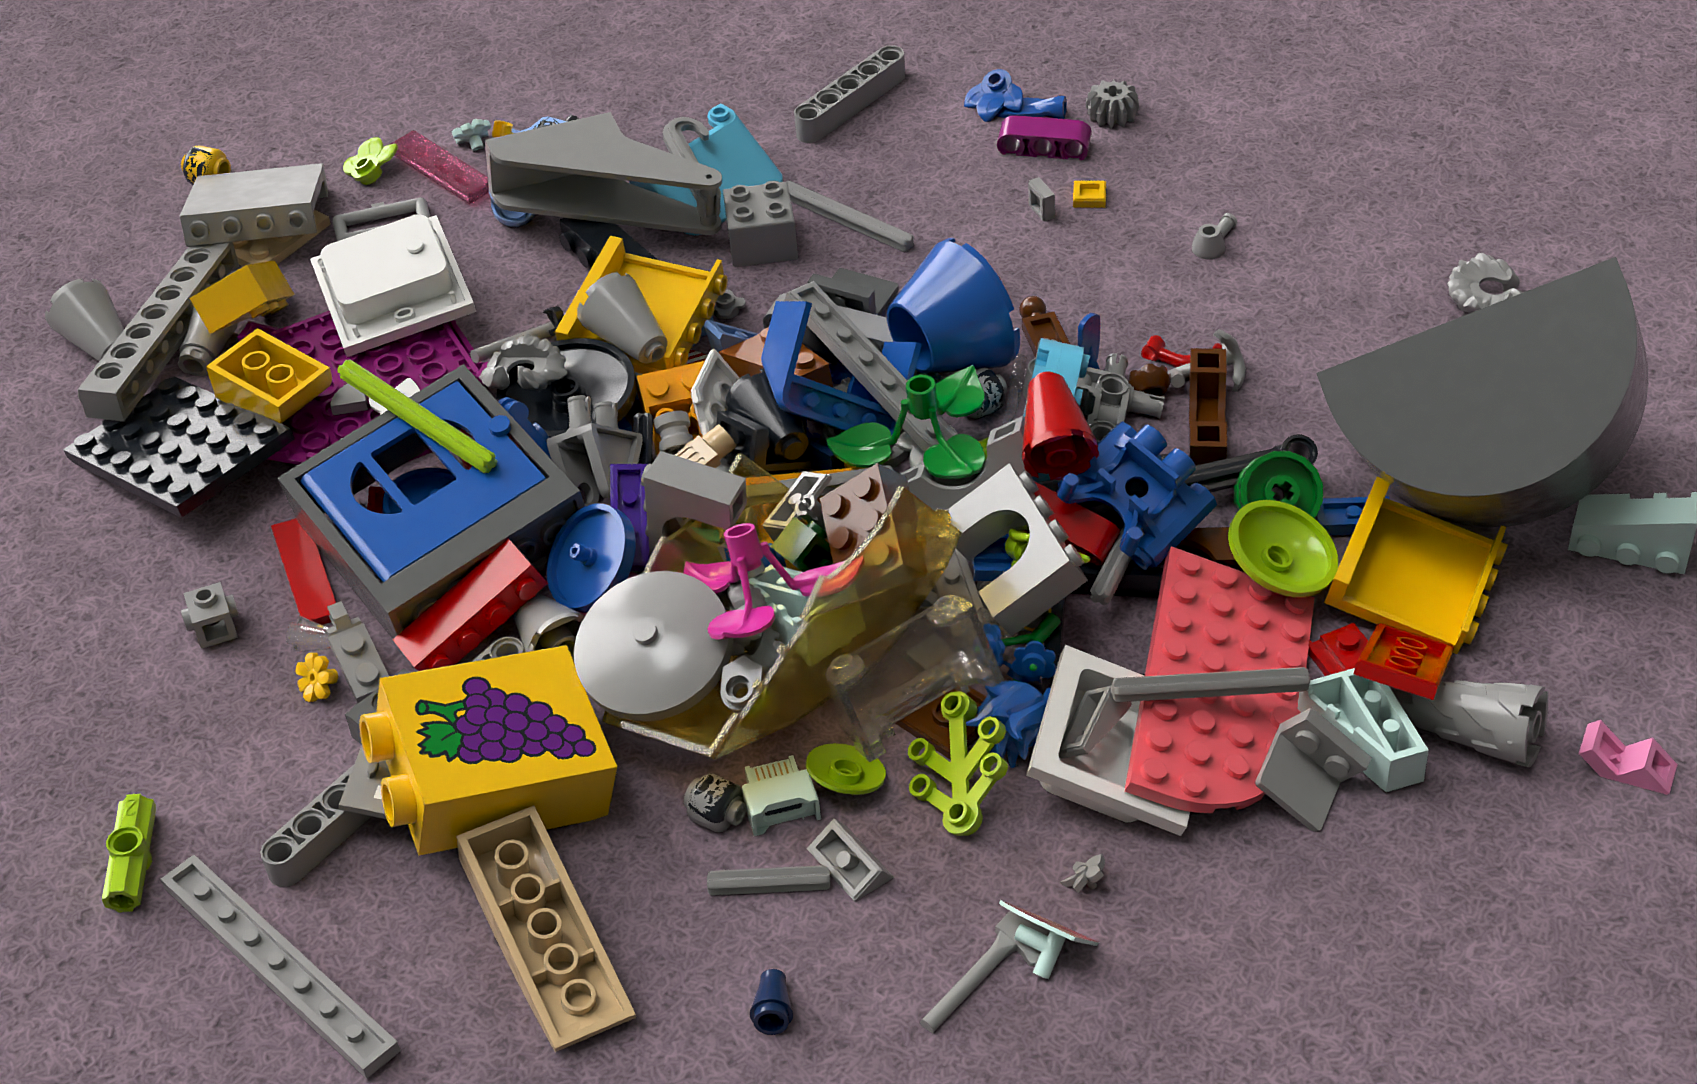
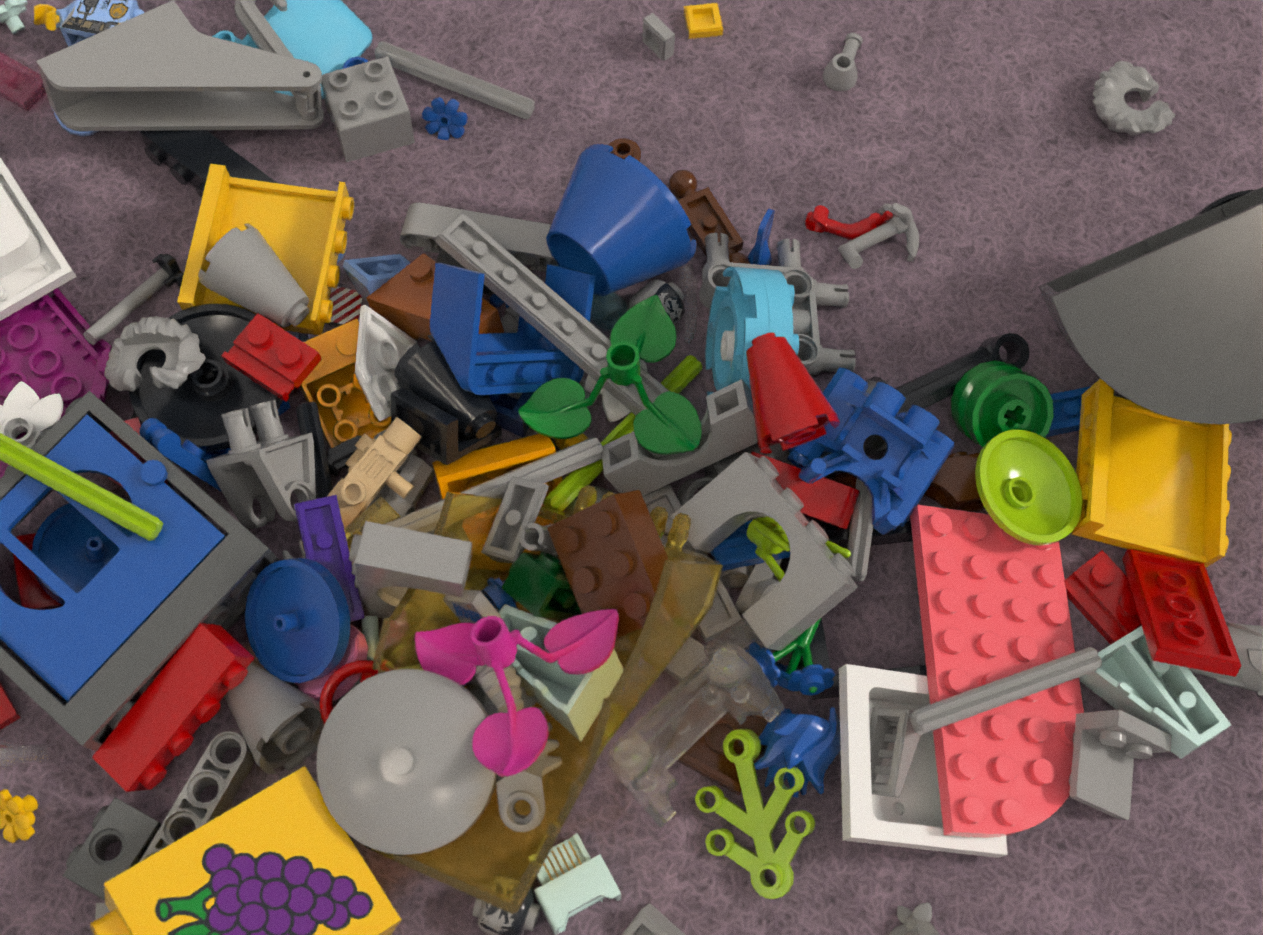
camera: 20 degrees left, 20 degrees up
(354, 652) = (53, 777): light grey hinge -> none
(623, 376) = (272, 357): none -> red plate
(673, 431) = (344, 419): light grey wheel -> none
(728, 305) = (358, 224): light grey plate -> none
(828, 240) = (444, 119): none -> blue plant
(844, 769) = (629, 823): lime dish -> none
(857, 290) = (489, 186): dark grey bracket -> none
(1150, 379) = (828, 267): reddish brown plate -> none
(1207, 405) = (905, 337): reddish brown arch -> none

